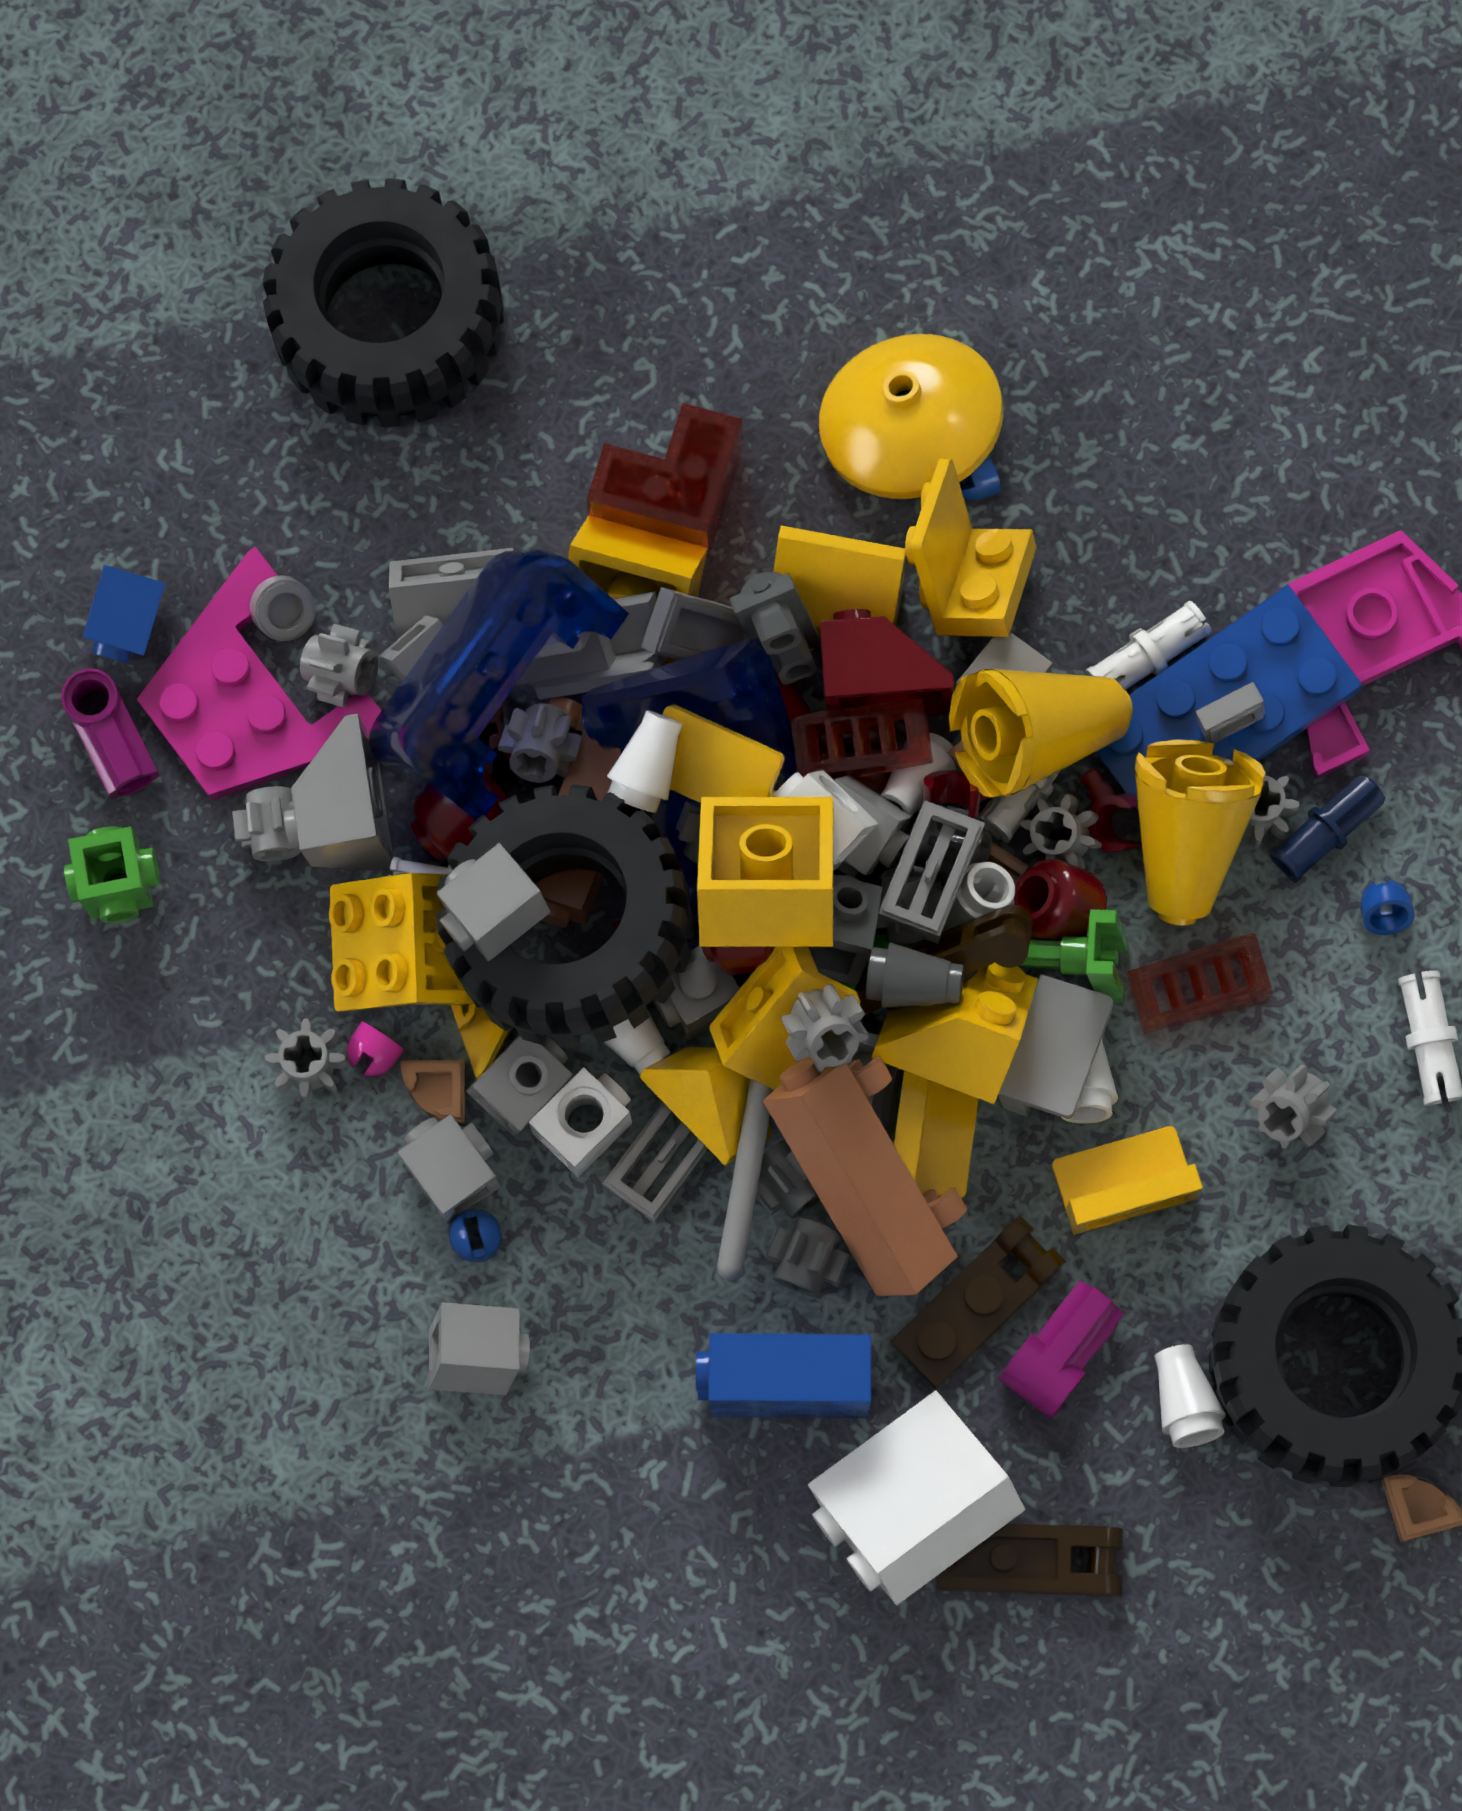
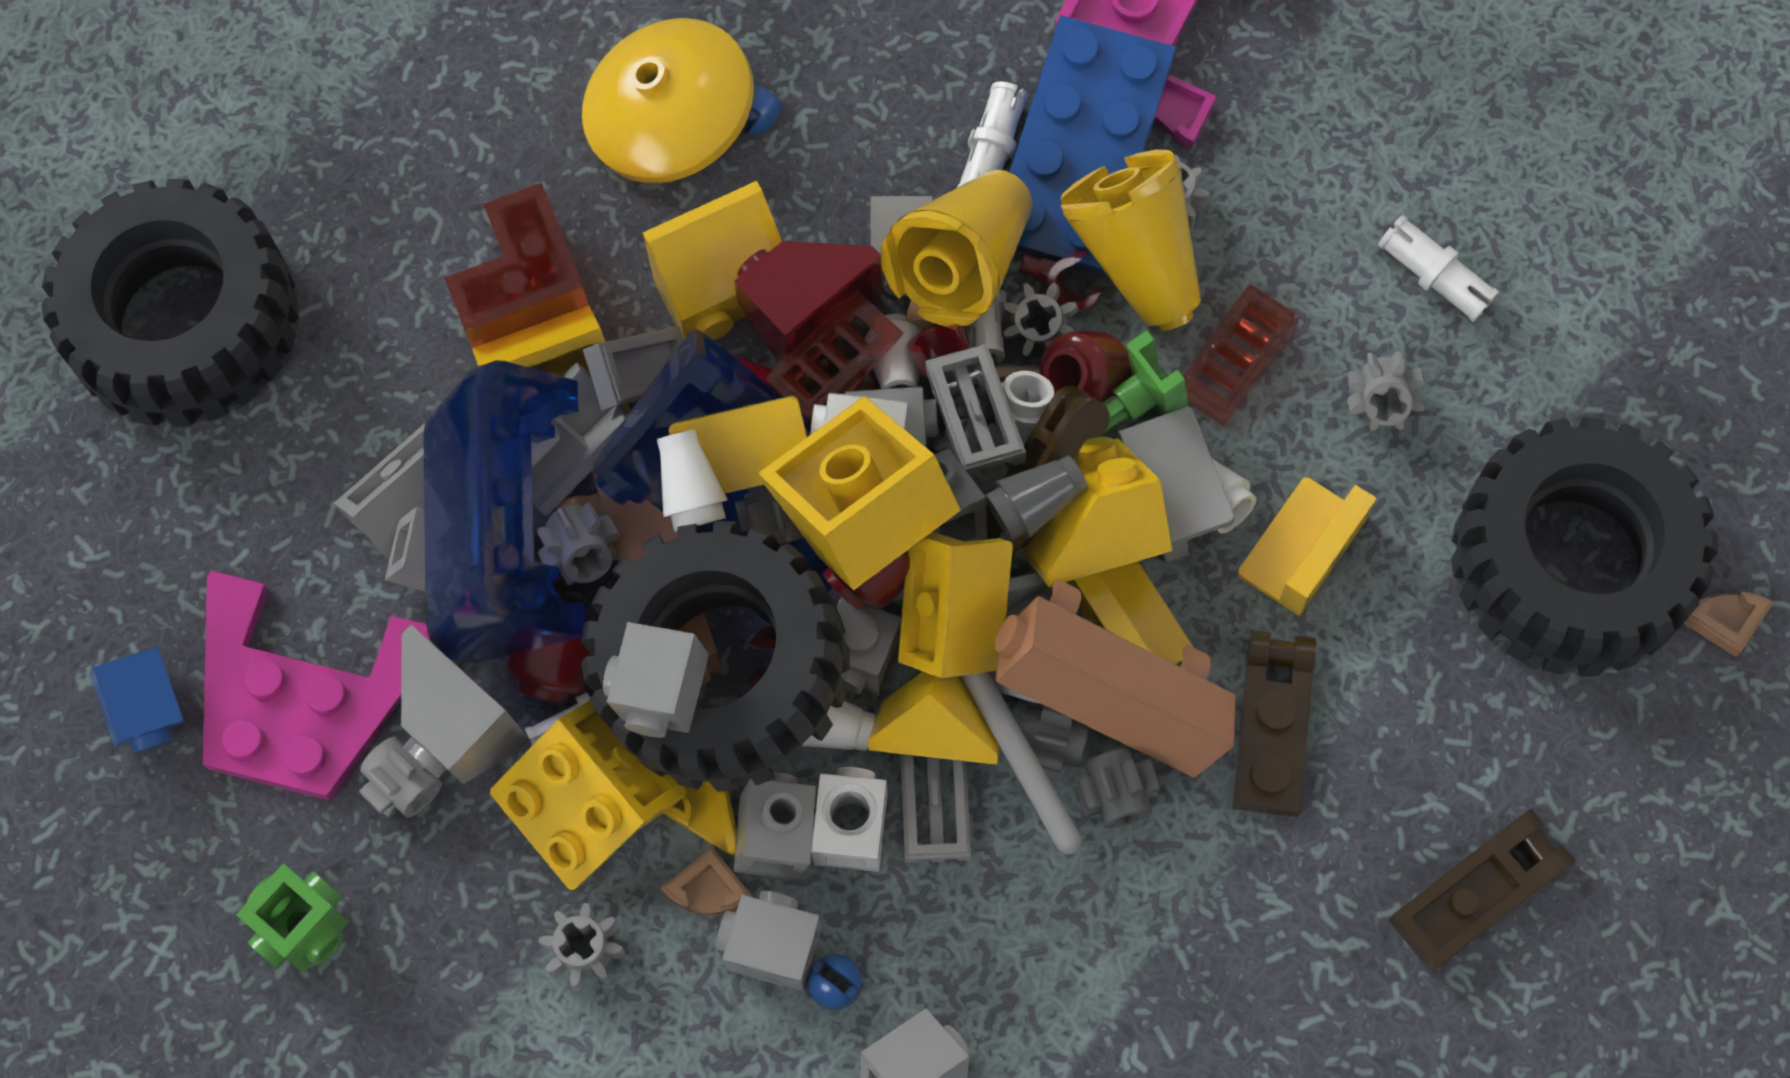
camera: 40 degrees left, 5 degrees down
(110, 735) = (202, 810): magenta piece -> none
(282, 608) = (272, 601): light grey tile -> none
(338, 665) = (356, 610): light grey gear -> none
(376, 1047) = (630, 892): dark pink hinge -> none
(777, 616) = (696, 300): dark grey hips -> none
(786, 1375) = (1186, 889): blue brick -> none
(825, 1027) = (1006, 579): light grey gear -> none
(914, 1499) = (1364, 909): white brick -> none
(966, 574) = (816, 174): yellow bracket -> none
(1054, 1360) = (1370, 717): magenta piece -> none
(1187, 1400) = (1495, 671): white cone -> none
(1231, 713) = (1102, 131): light grey tile -> none
(1327, 827) = (1231, 175): dark blue axle -> none
(1384, 894) = (1336, 197): blue hinge -> none

